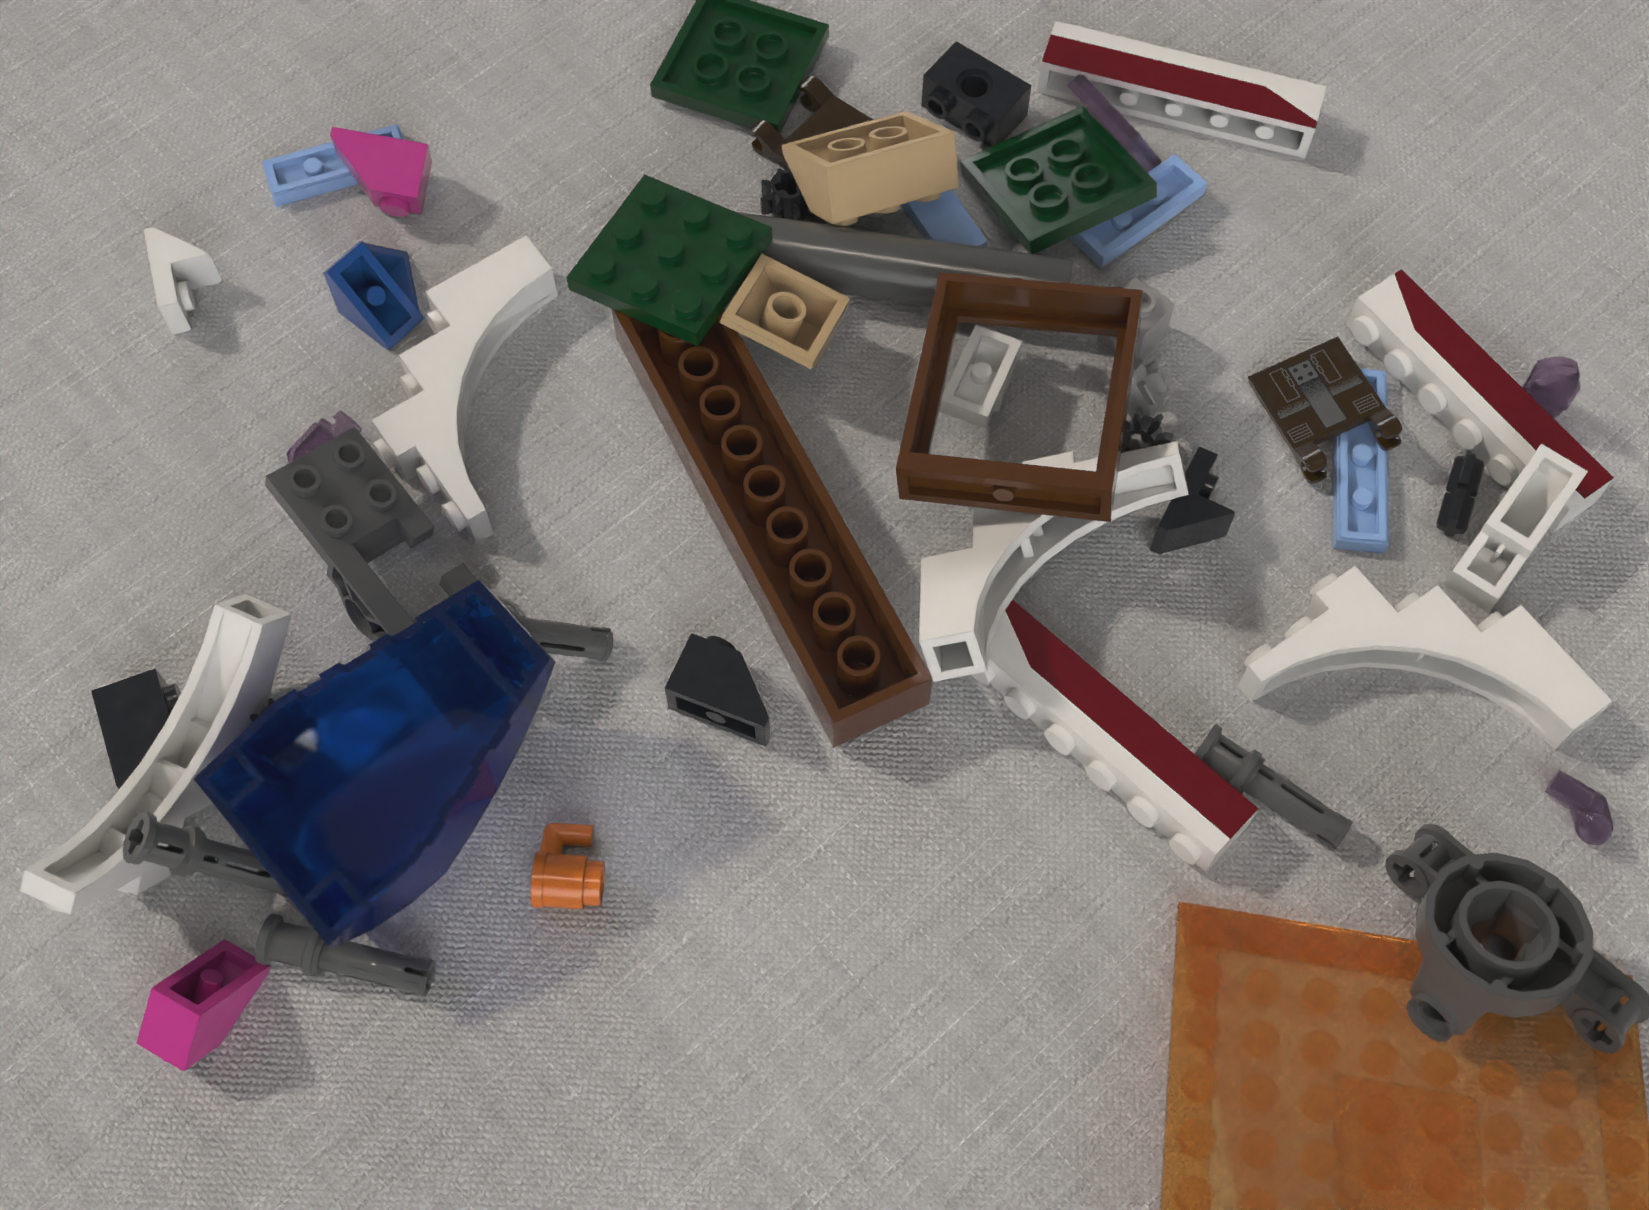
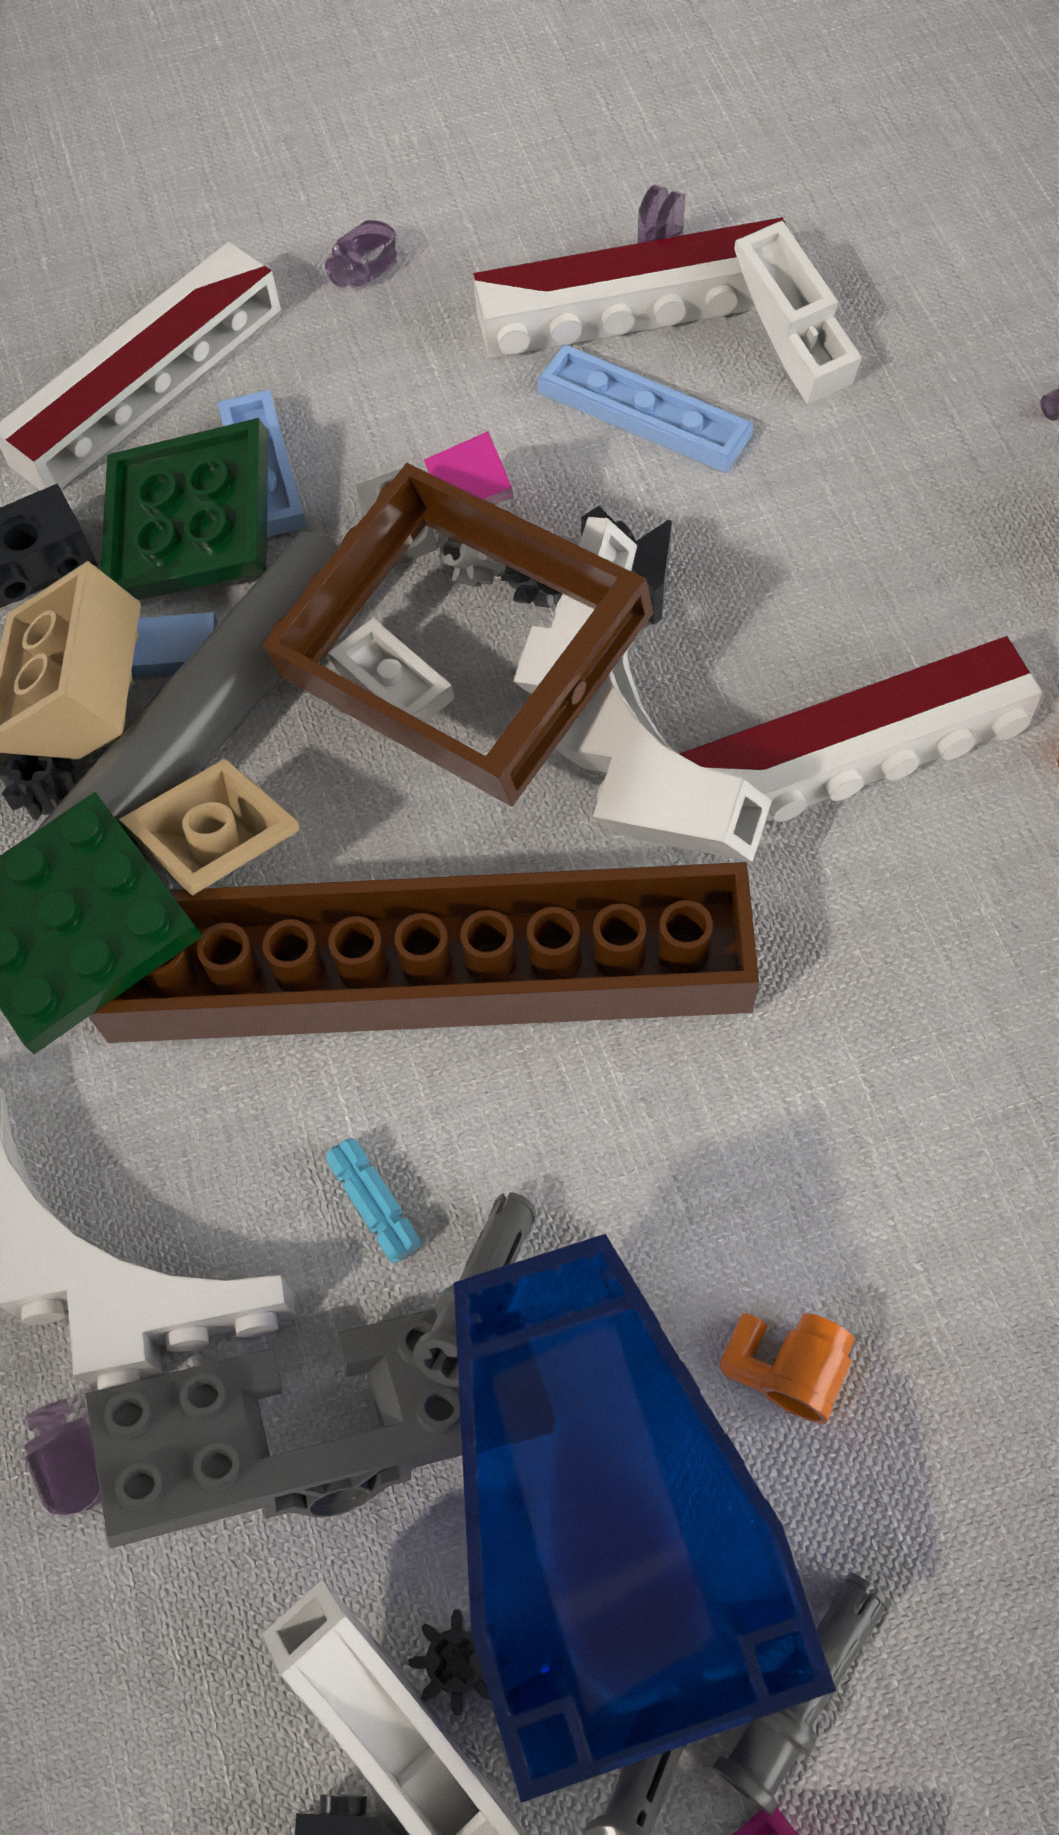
camera: 60 degrees left, 0 degrees up
(574, 551) = (373, 1200): none -> medium azure axle
(717, 689) = (636, 1099): black slope -> none
(1114, 122) = (151, 425): clear purple tile -> none
(1189, 351) = (474, 468): none -> dark pink slope
(1248, 774) = (956, 633): dark grey pin -> none
(1320, 398) = (569, 407): dark brown flag -> none
(1388, 187) = (362, 254): none -> clear purple arm
(1458, 504) = (732, 352): black piece -> none
(1501, 658) = (910, 390): white arch -> none

